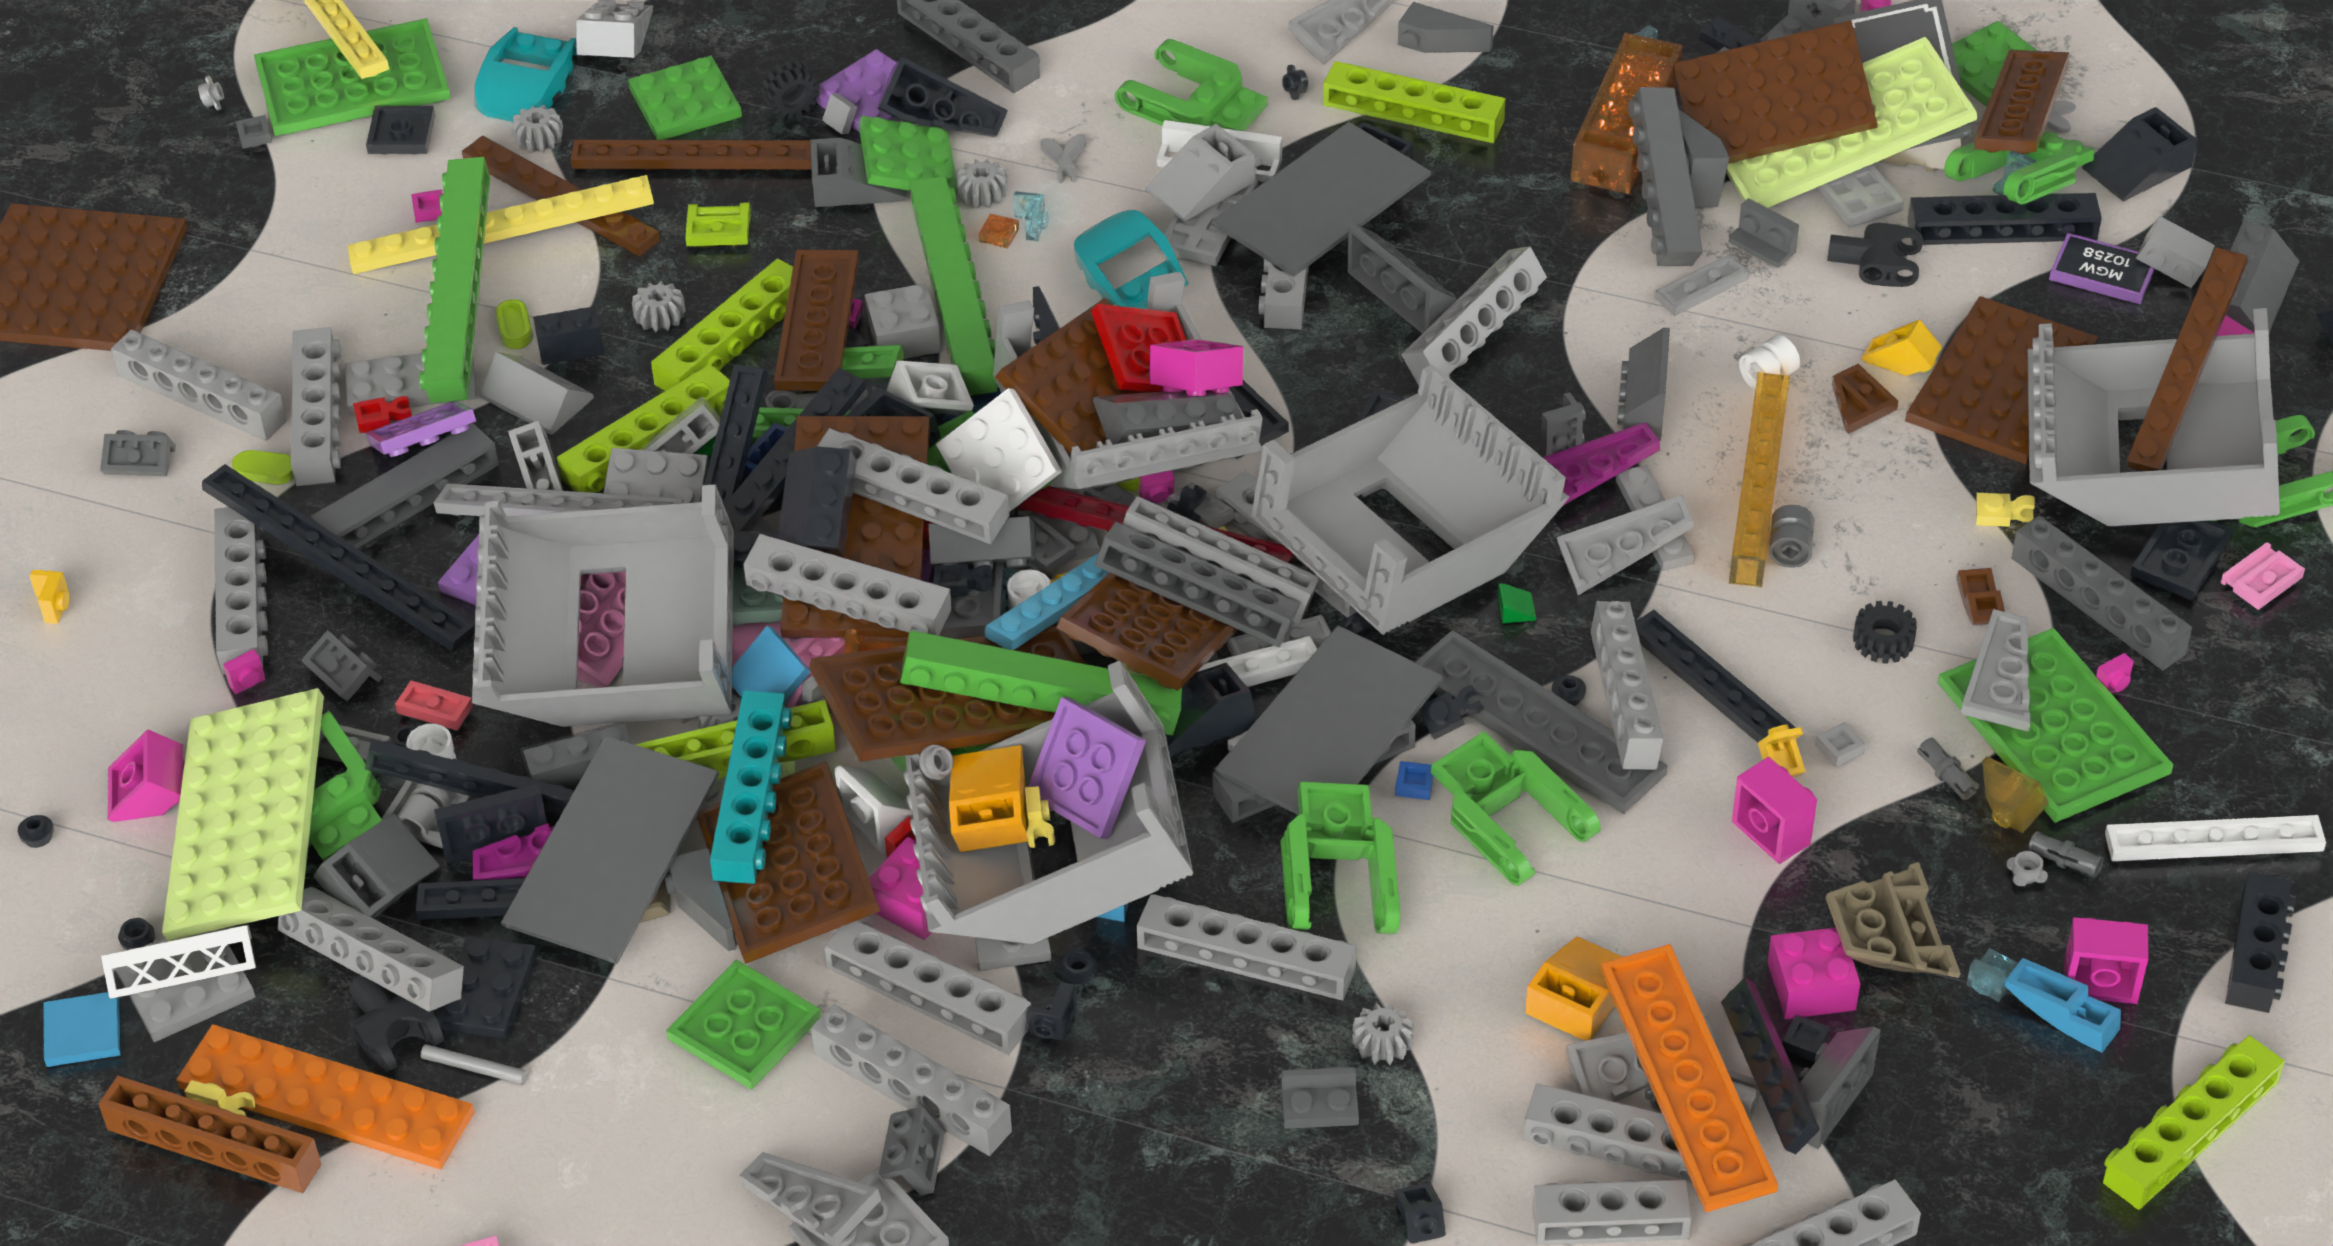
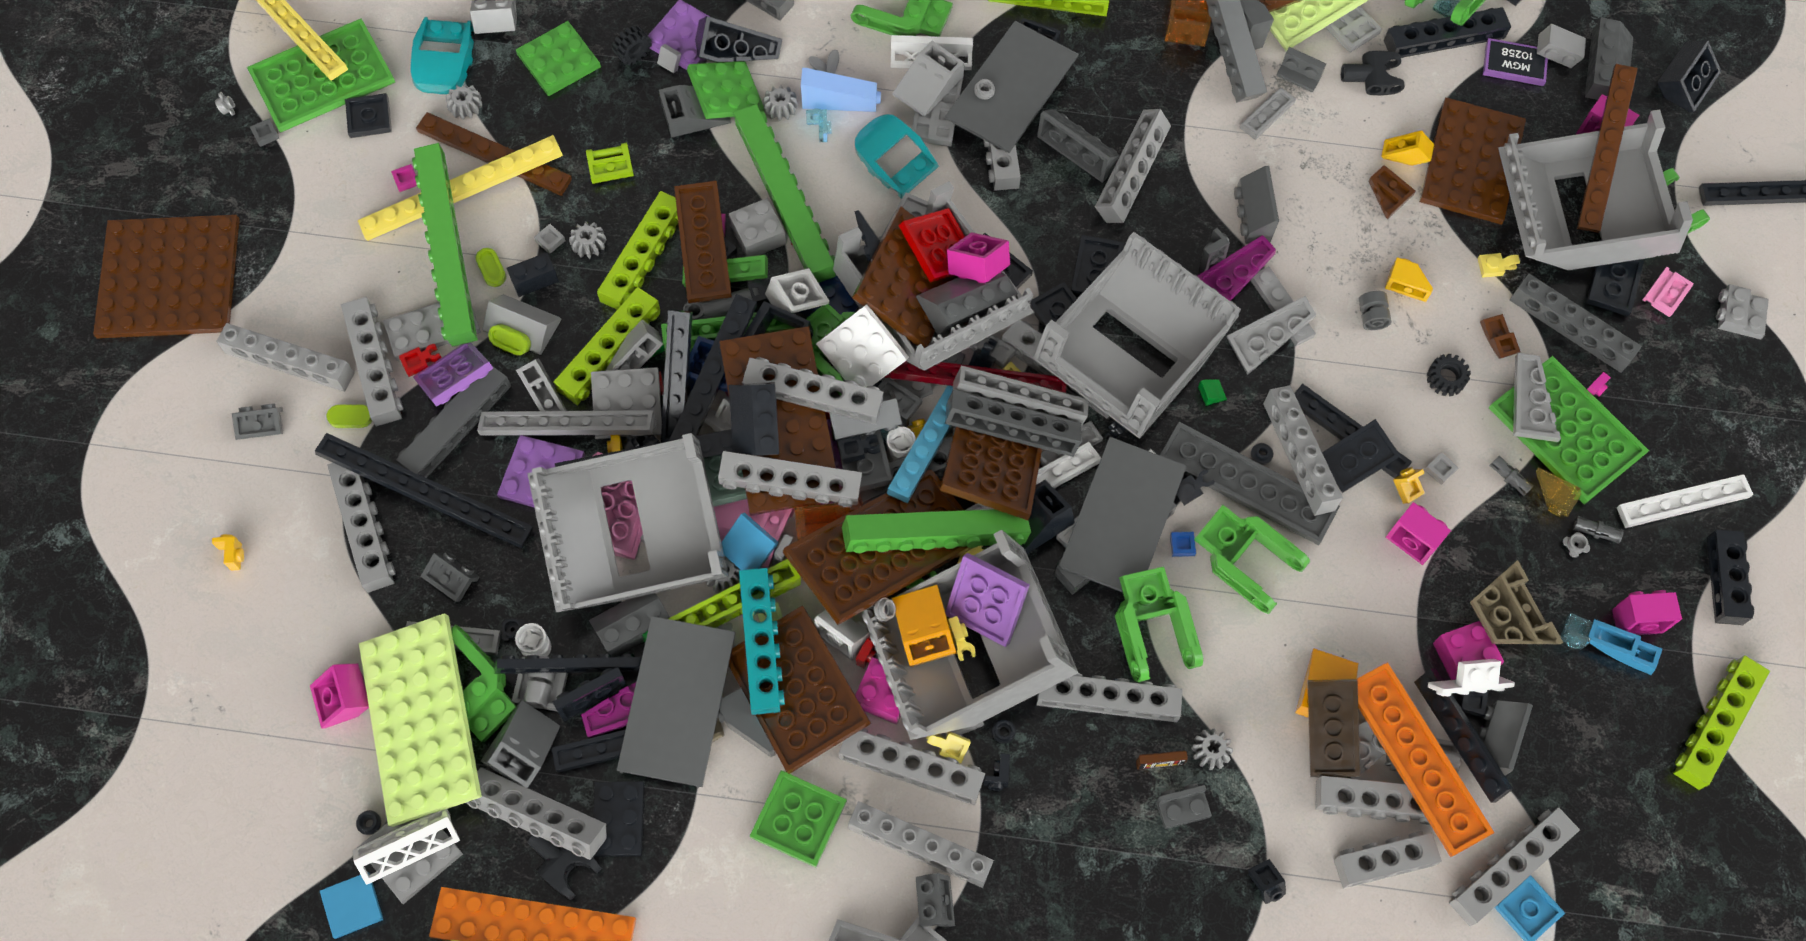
camera: 15 degrees left, 20 degrees up
(36, 831) = (278, 753): black plate -> none
(244, 671) = (384, 593): dark pink plate -> none
(434, 705) = (521, 597): coral plate -> none
(474, 1064) = (626, 882): light grey bar -> none
(511, 405) = (509, 339): none -> lime tile
(606, 298) = (549, 238): none -> light grey plate
(691, 154) = (576, 107): reddish brown plate -> none
(993, 966) = (951, 745): none -> light yellow plate
(999, 231) = (800, 138): clear orange plate -> none
(1067, 177) = (837, 92): none -> light blue slope
(1277, 192) = (984, 84): none -> light grey plate
(1302, 1035) = (1161, 759): none -> reddish brown tile
(1567, 1017) = (1333, 728): none -> dark brown plate
(1712, 705) = (1360, 455): none -> black plate
(1759, 480) = (1344, 268): clear yellow brick -> none
(1773, 357) = (1328, 174): white wheel -> none
(1808, 988) = (1473, 676): none -> white bracket
(1854, 507) = (1408, 280): none -> yellow slope

